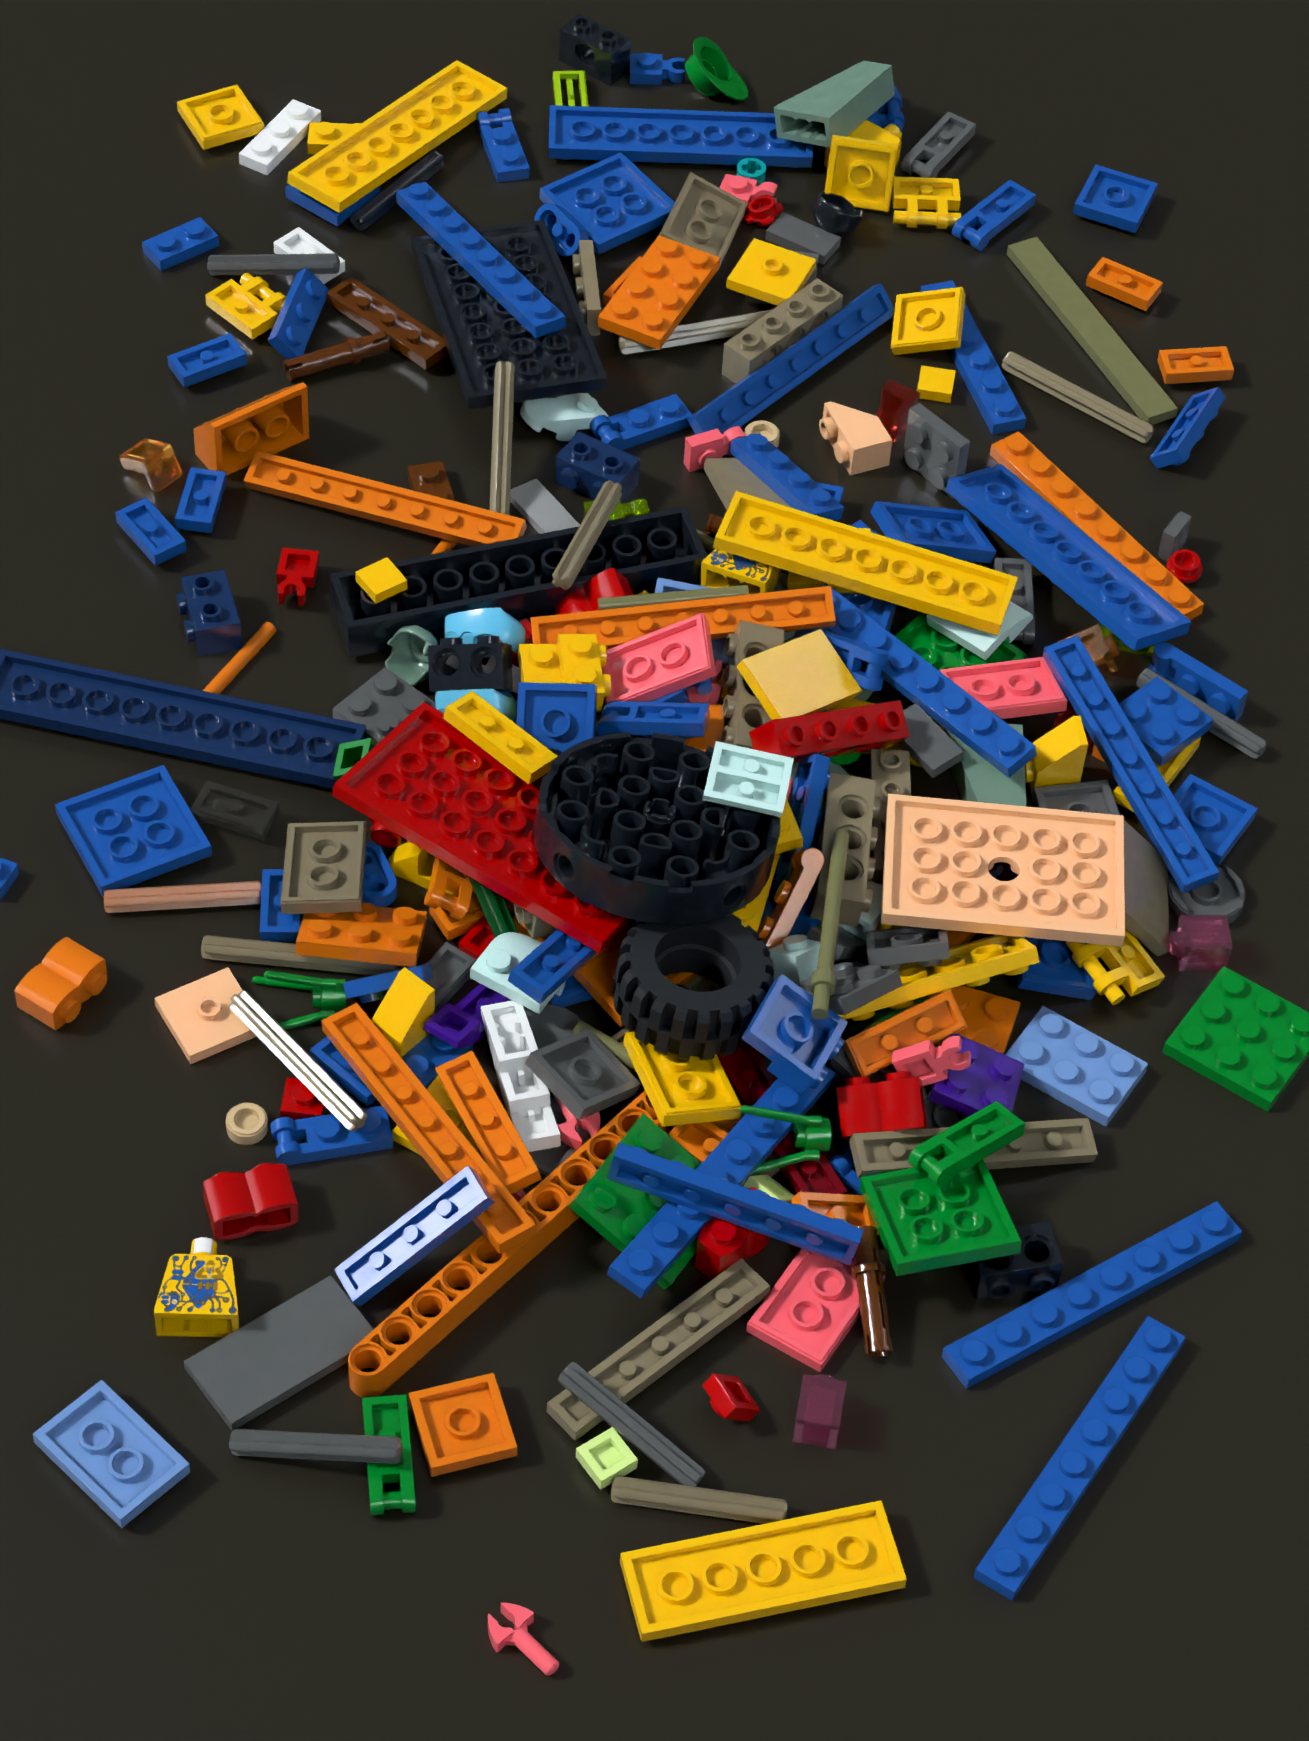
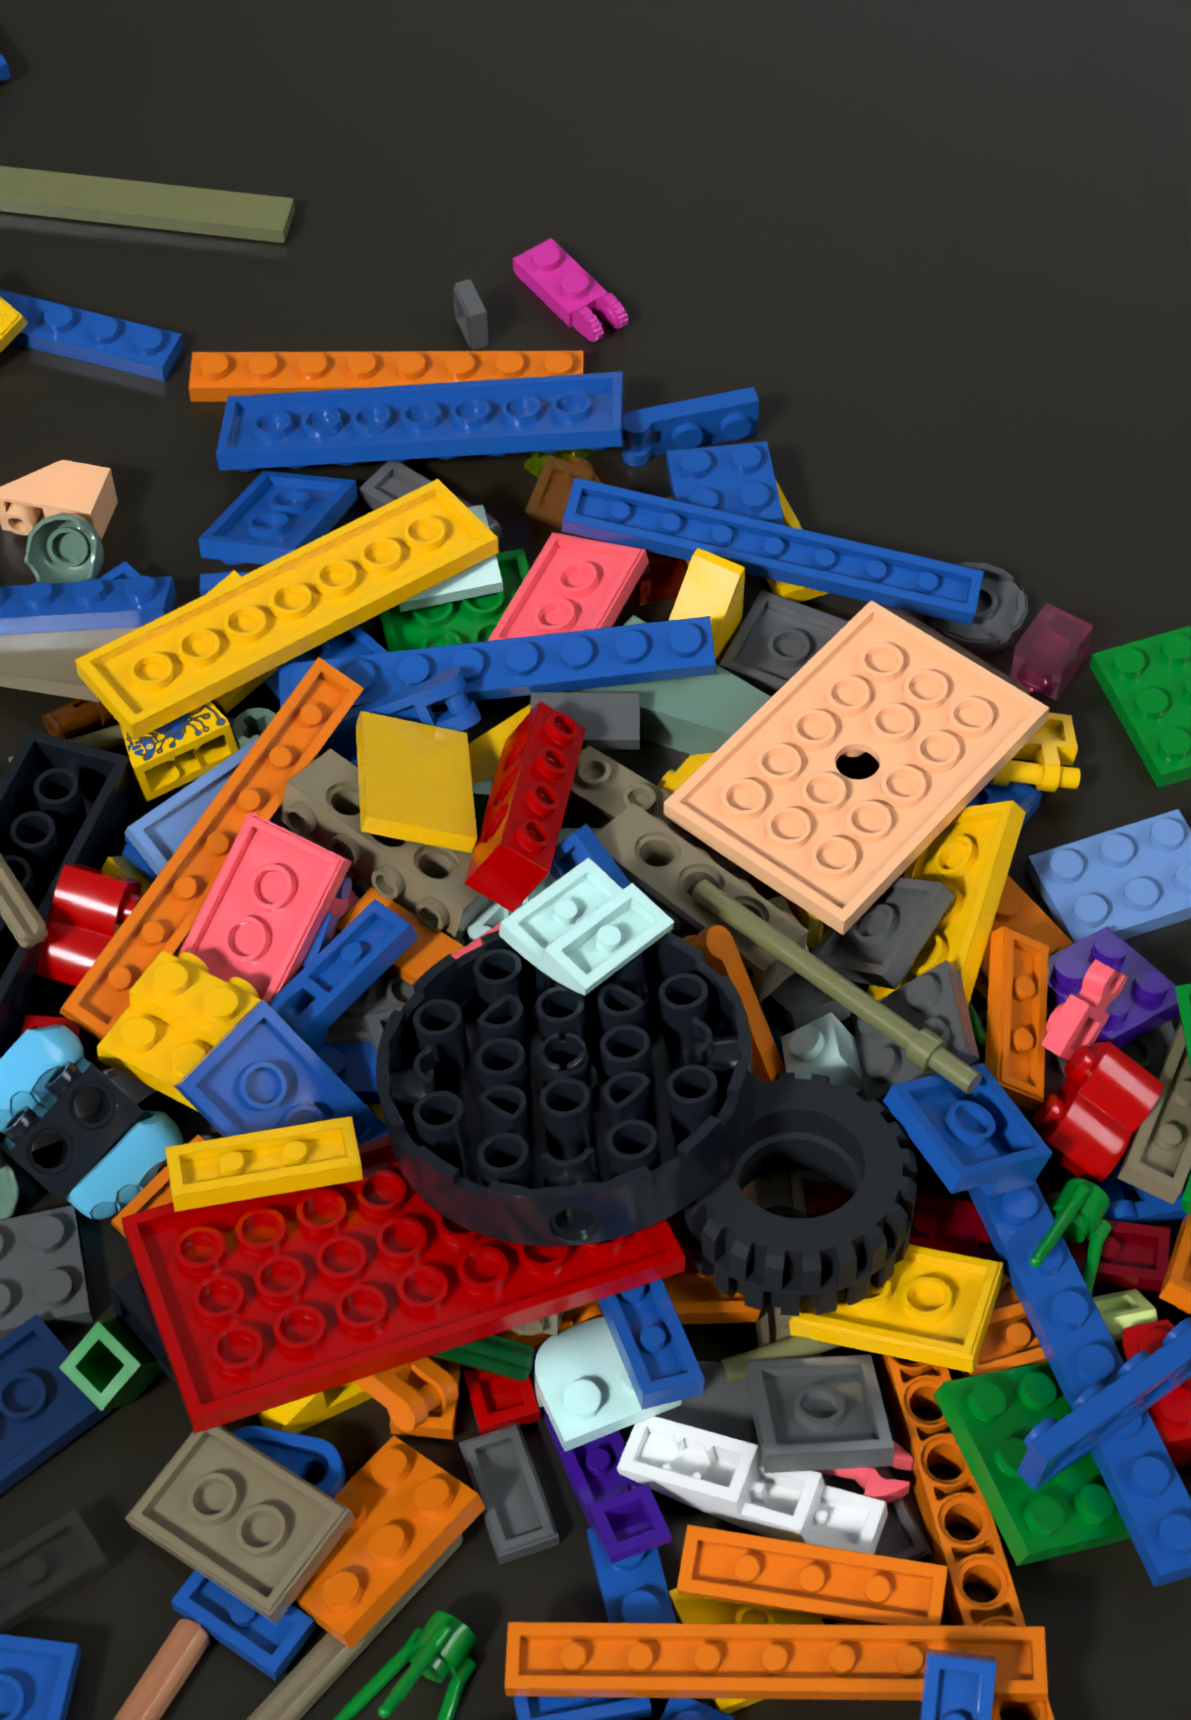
camera: 50 degrees left, 5 degrees up
(372, 987) = (486, 1557): blue plate -> none
(405, 1011) = (567, 1569): yellow slope -> none
(669, 597) = (174, 834): olive bar -> none
(822, 456) = (64, 549): none -> sand green hair
(895, 407) = (52, 435): clear red panel -> none
(934, 447) = (164, 438): dark grey plate -> none
(936, 384) = (47, 382): yellow tile -> none
(1078, 397) = (190, 272): dark tan axle -> none
(1124, 283) = (75, 130): orange plate -> none
(1185, 566) = (515, 332): red plate -> none
(1187, 428) = (331, 207): blue plate -> none
(1195, 365) = (248, 146): orange plate -> none
(1214, 815) = (882, 520): blue plate -> none
(1222, 725) = (781, 441): dark grey axle -> none
(1247, 571) = (569, 290): none -> dark pink hinge

